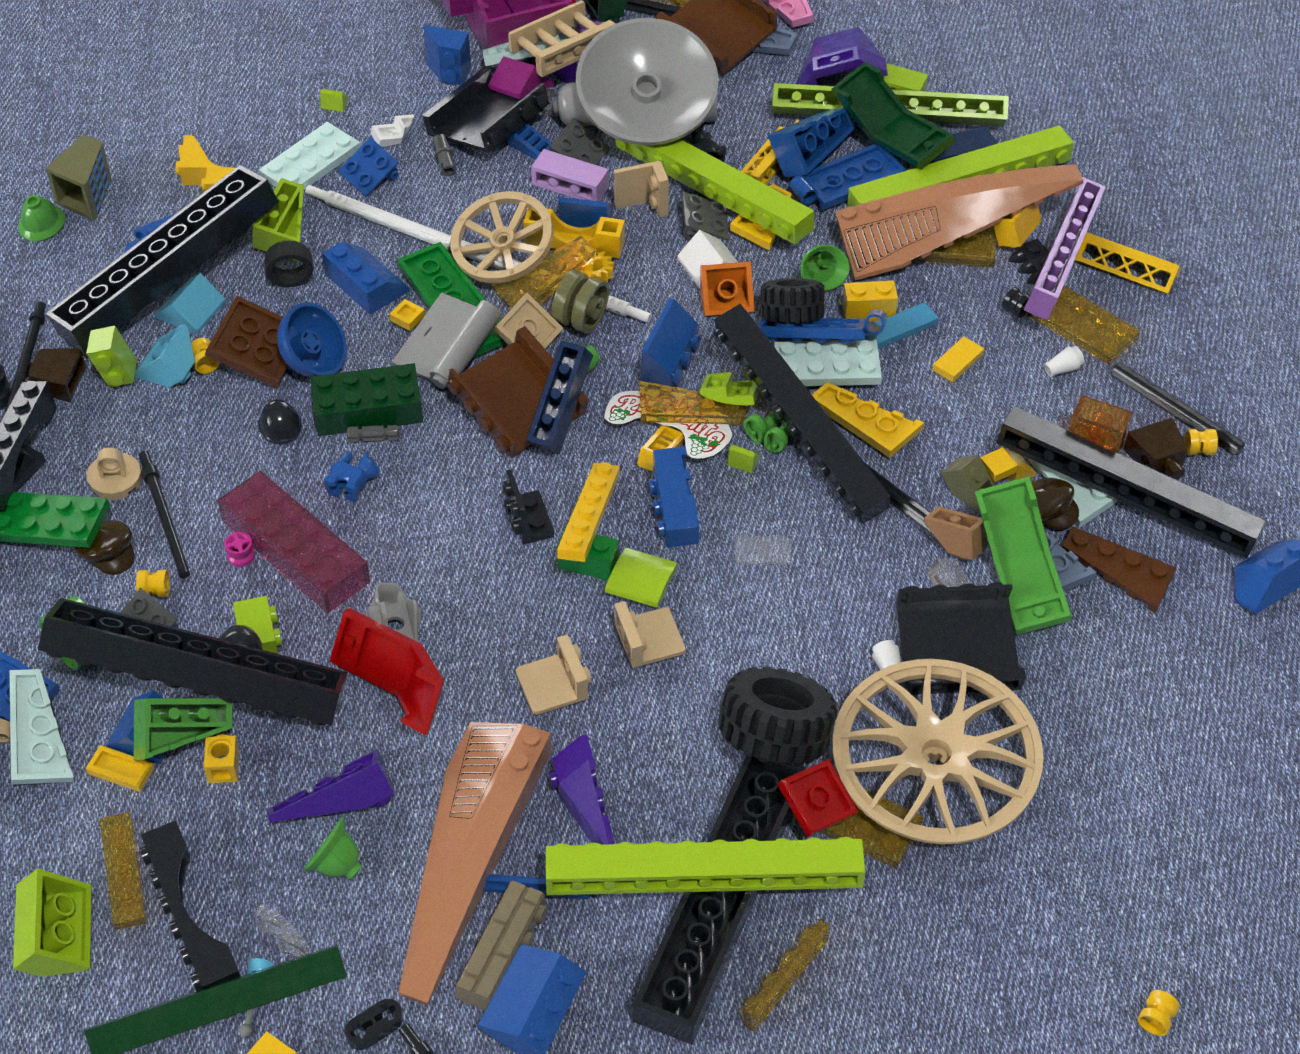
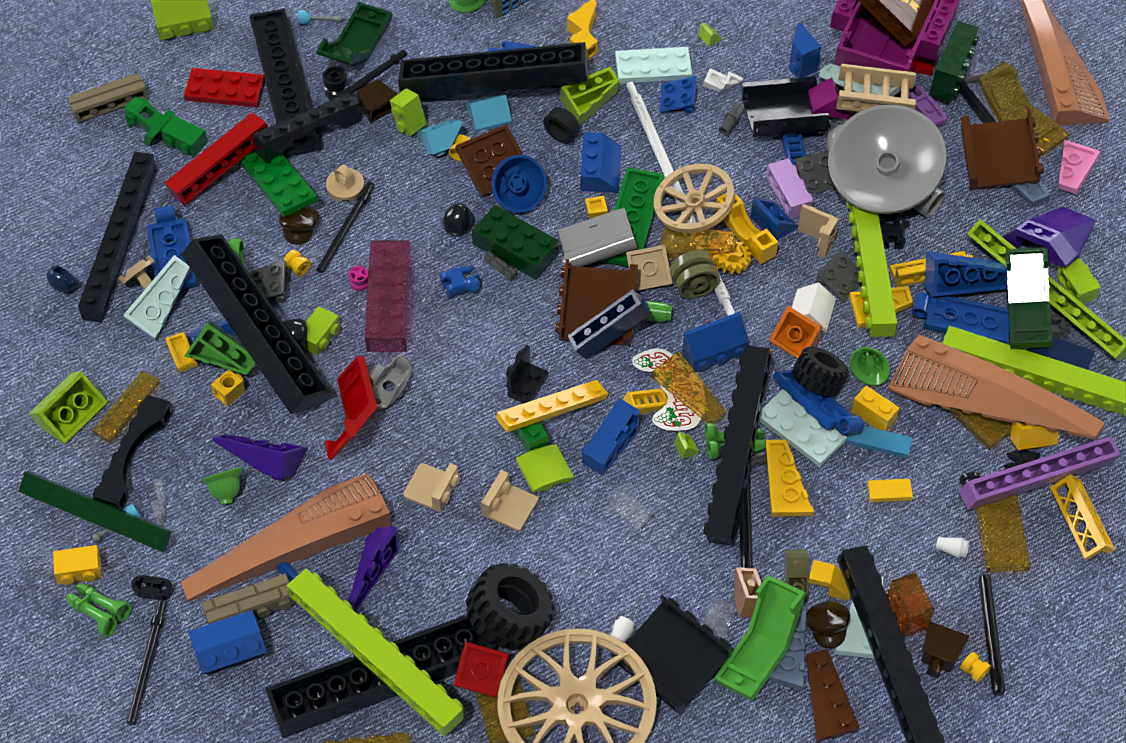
camera: 45 degrees right, 5 degrees up
(723, 389) = (717, 395): lime slope -> none

